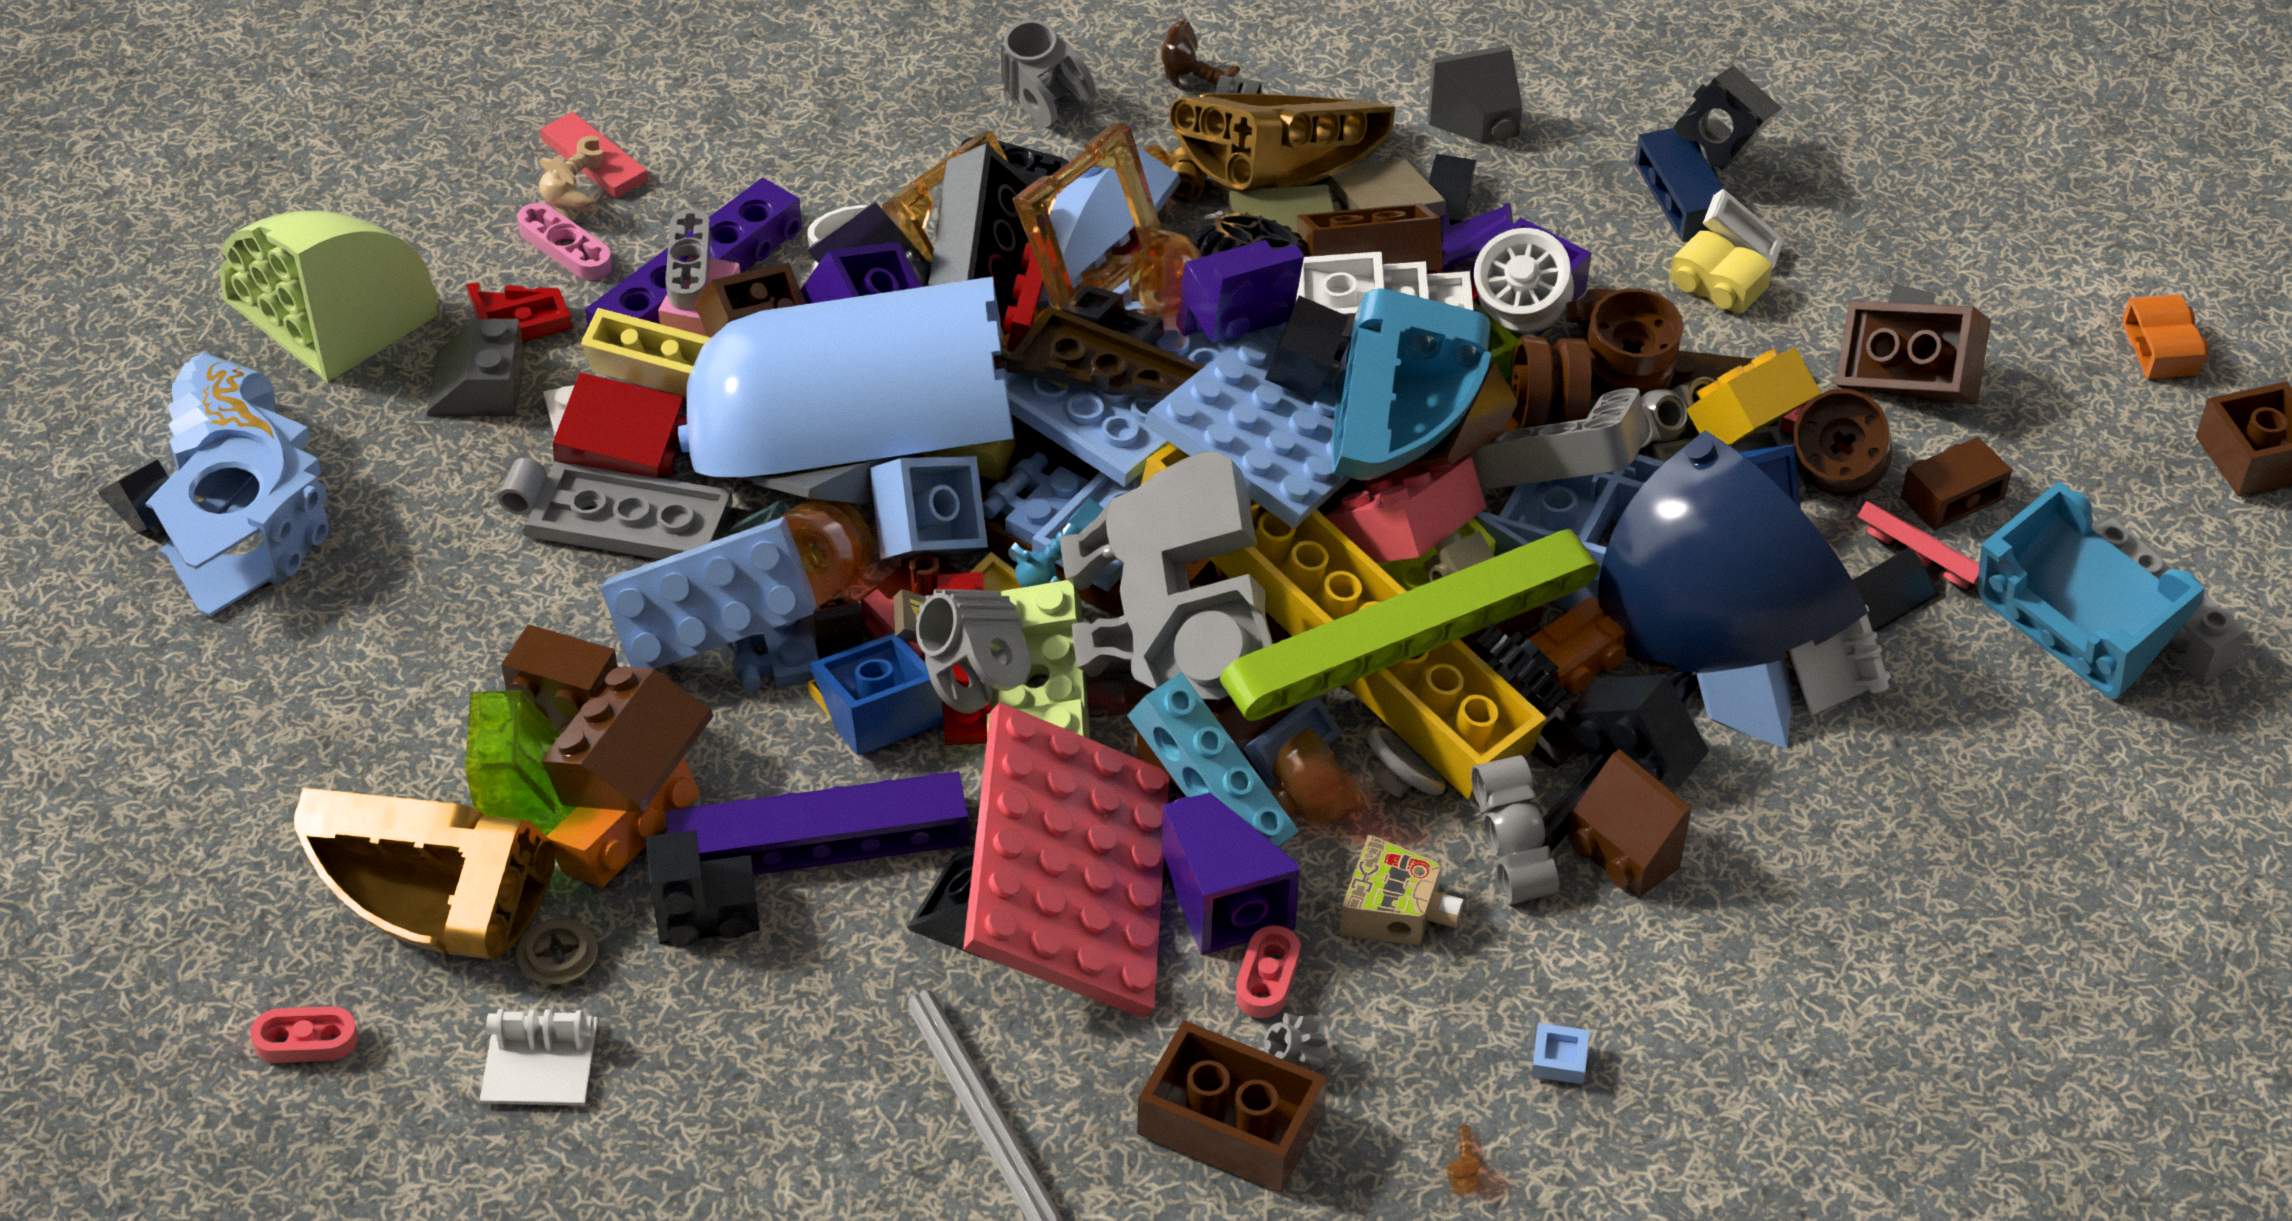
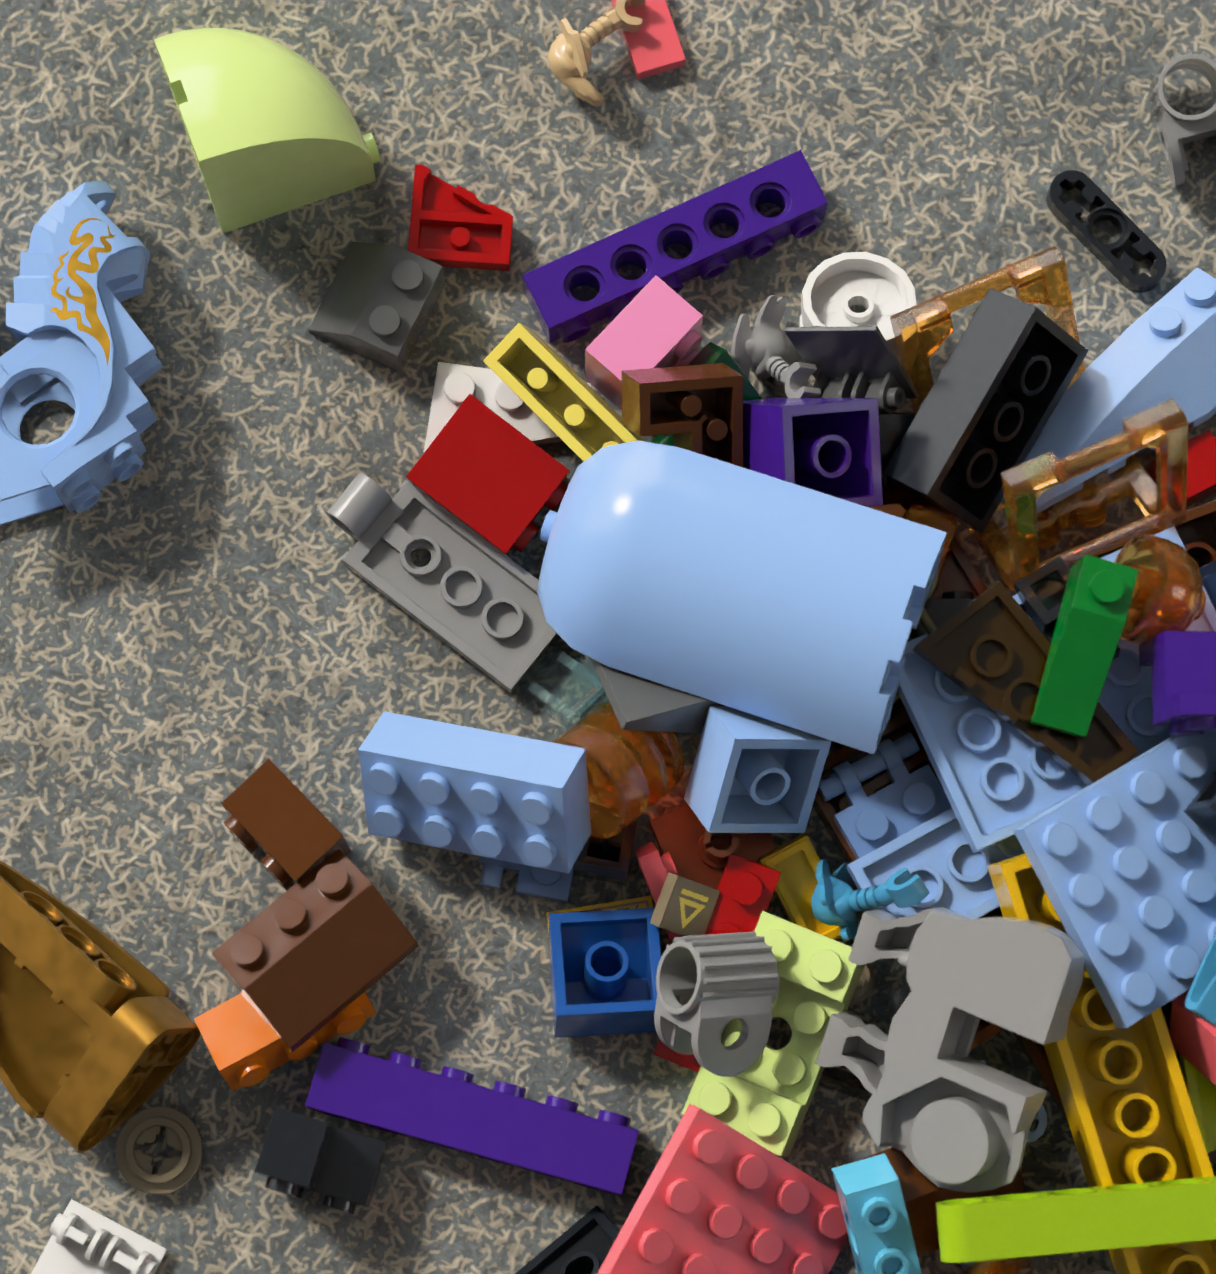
camera: 25 degrees right, 30 degrees up
(505, 757) = (192, 913): clear neon green slope -> none
(558, 228) = (577, 159): bright pink beam -> none
(681, 246) = (647, 252): light grey beam -> none
(1027, 293) = (976, 544): red plate -> none
(1132, 306) = (1083, 644): none -> green slope

